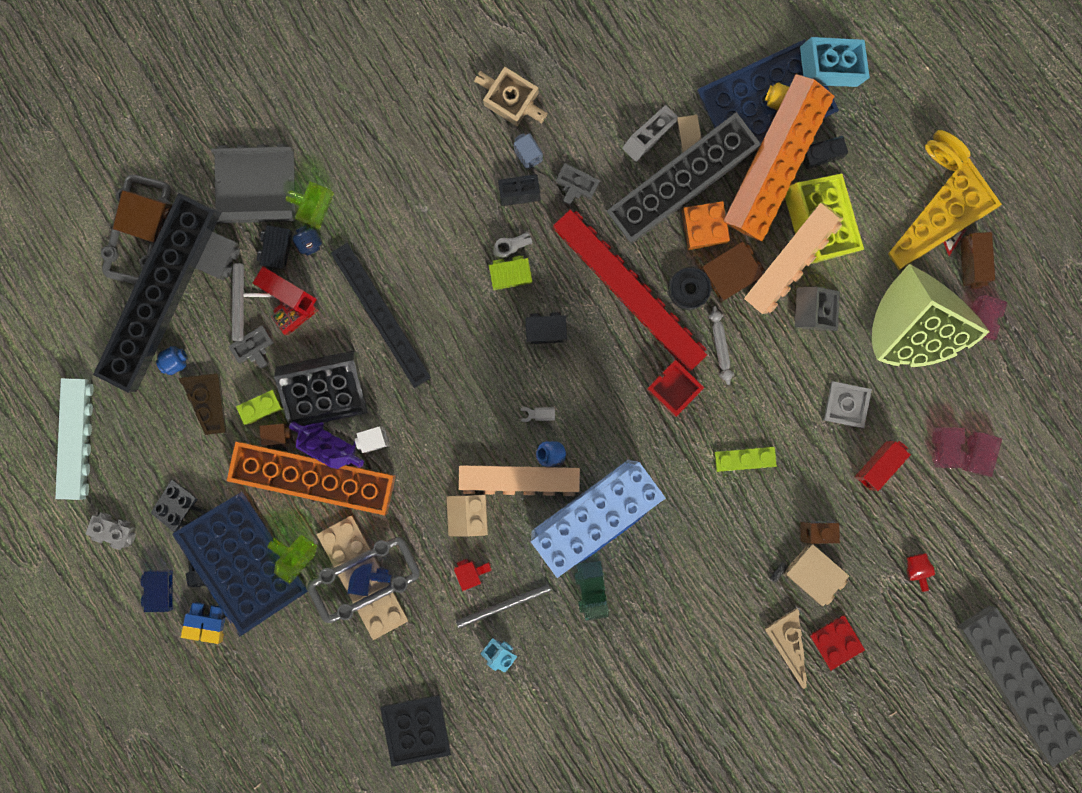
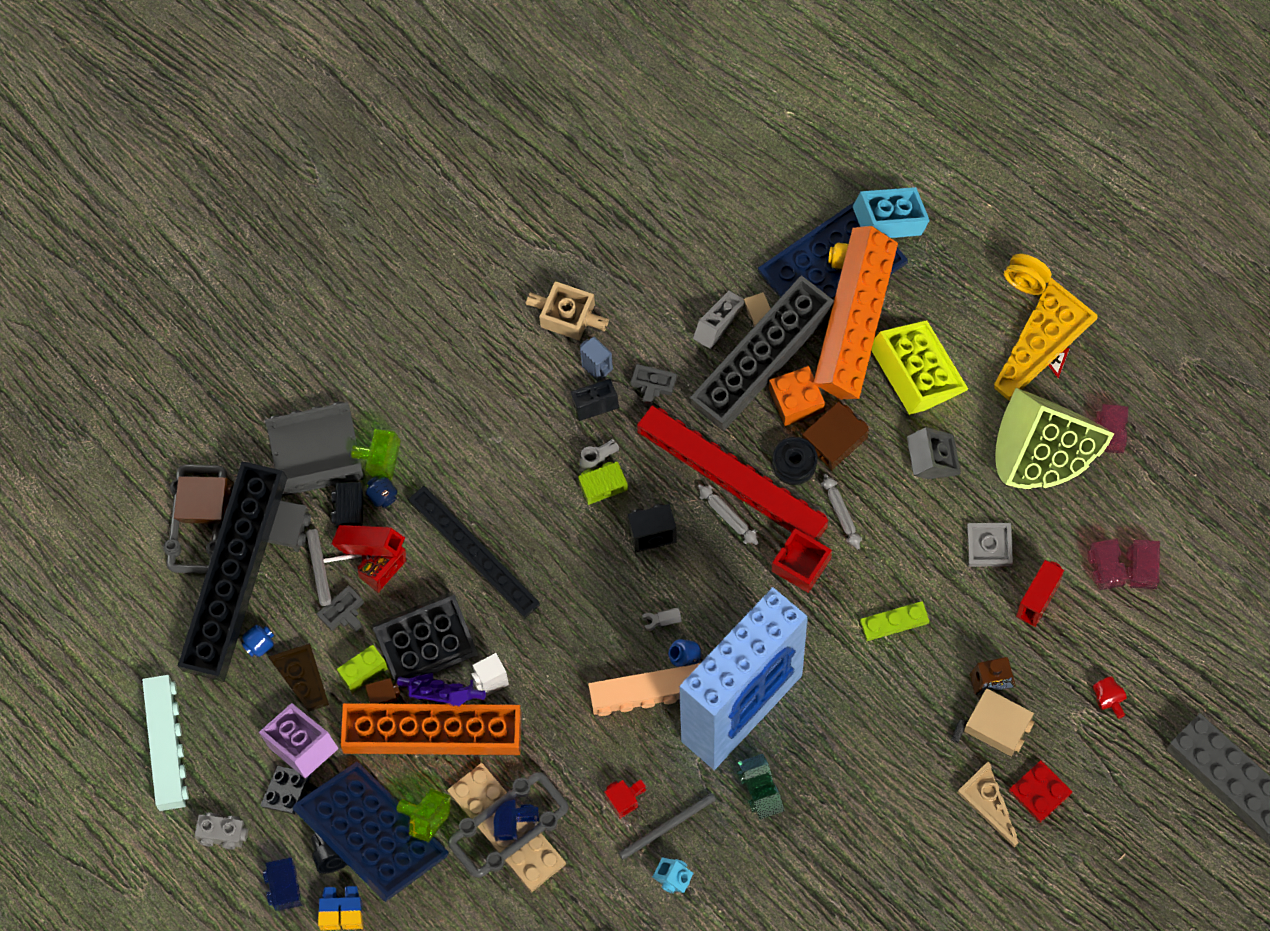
camera: 10 degrees left, 20 degrees down
(190, 467) = (298, 740): none -> lavender brick
(467, 515) = (608, 736): tan slope -> none
(618, 327) = (728, 514): none -> light grey wheel
(793, 258) = (894, 405): light nougat brick -> none
(825, 152) = (903, 302): black brick -> none
(977, 260) = (1086, 371): reddish brown brick -> none

